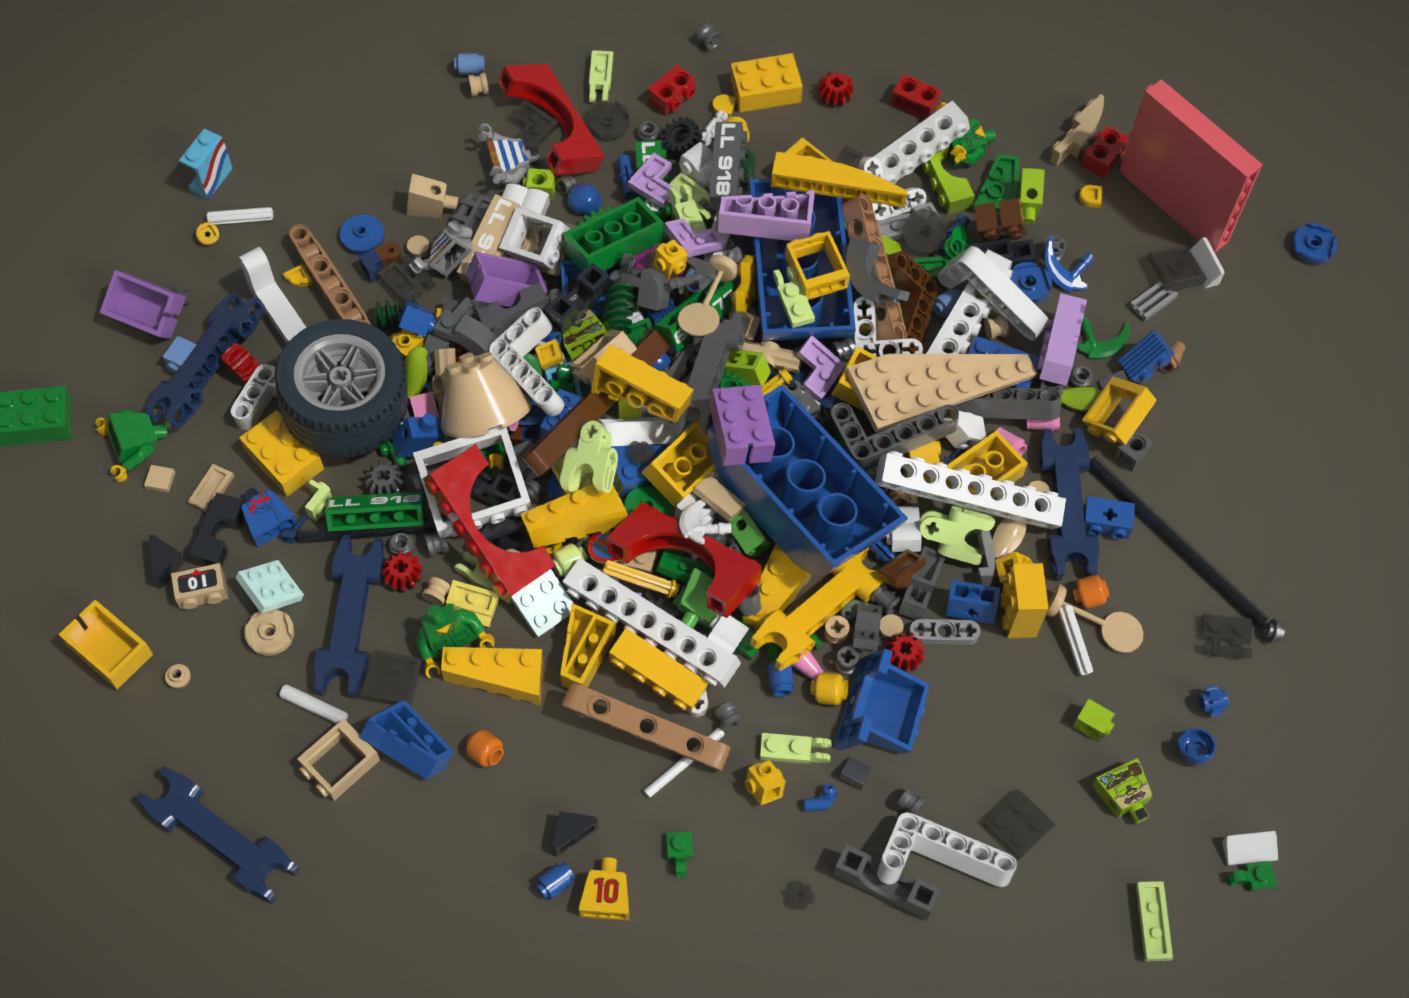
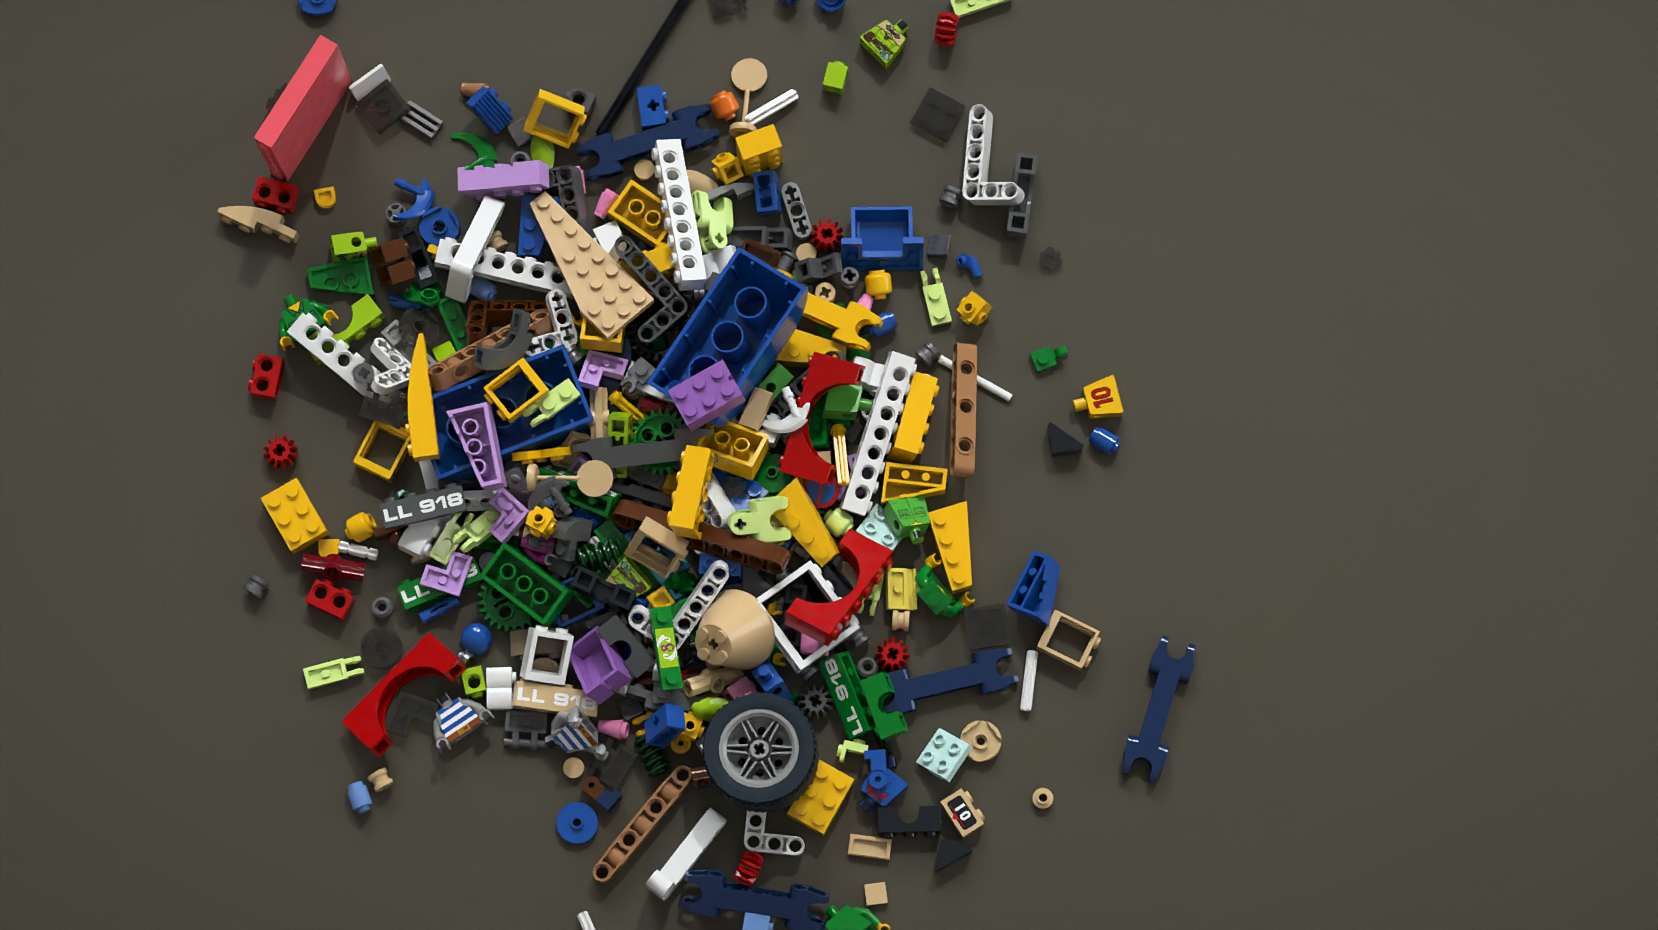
camera: 105 degrees left, 15 degrees up
(106, 644) = (1040, 862): yellow piece -> none
(282, 508) = (878, 774): none -> blue leg
(298, 277) = (639, 861): yellow tile -> none
(326, 531) = (875, 690): none -> green arch
(428, 198) = (525, 773): tan torso -> none
(440, 290) = (614, 728): none -> bright pink cone
(484, 748) = (1019, 531): orange head -> none
(490, 330) = (665, 648): none -> green plate
(543, 629) = (908, 517): none -> bright green torso
(674, 130) = (394, 578): black tyre -> none
(703, 96) = (333, 567): none -> dark red piece
(892, 163) = (360, 373): none -> flat silver wheel
(1123, 863) = (946, 29): none -> red gear

